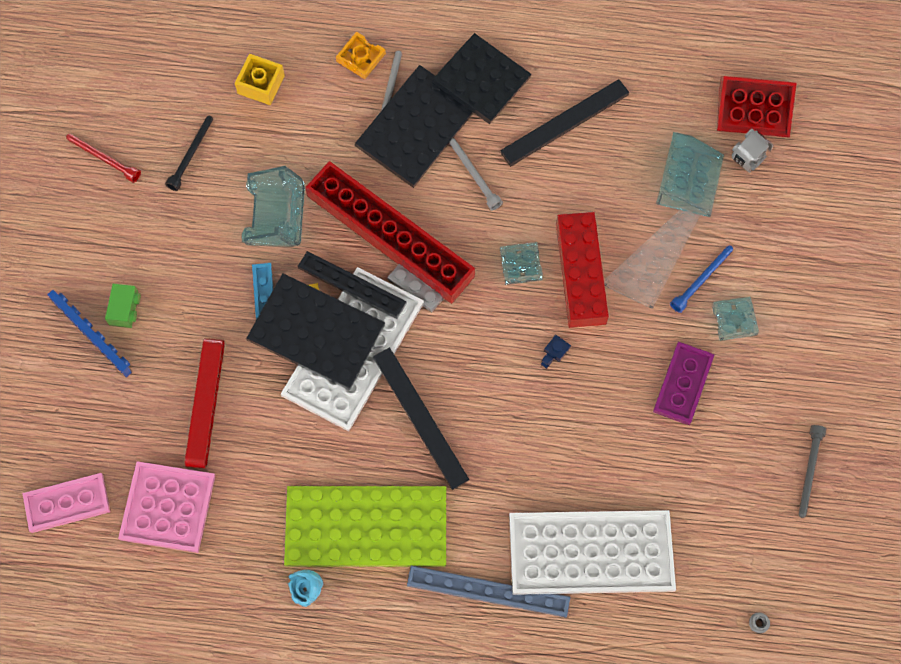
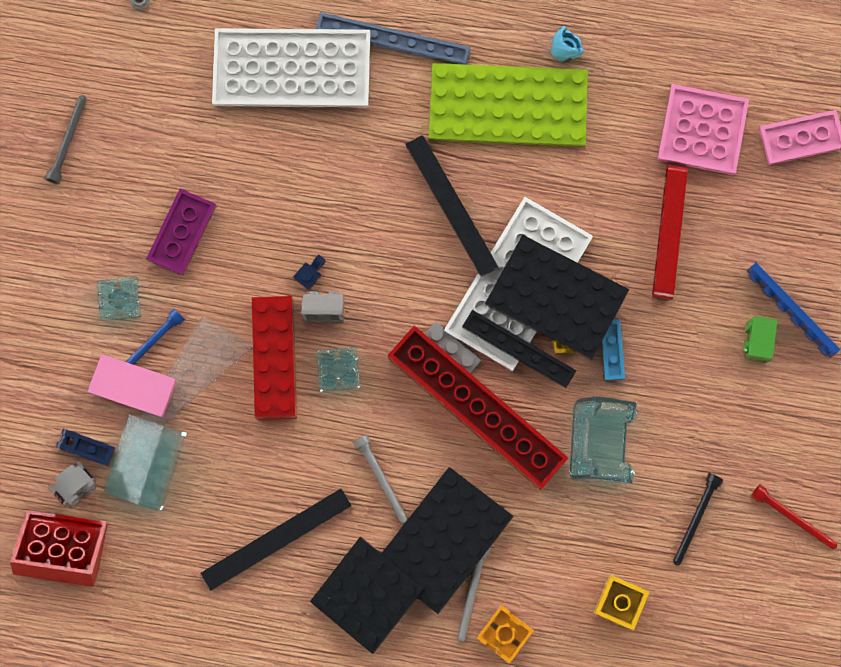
camera: 175 degrees left, 10 degrees up
(539, 314) = (323, 307): none -> light grey slope
(711, 238) = (132, 385): none -> bright pink tile
(746, 188) = (86, 447): none -> dark blue plate

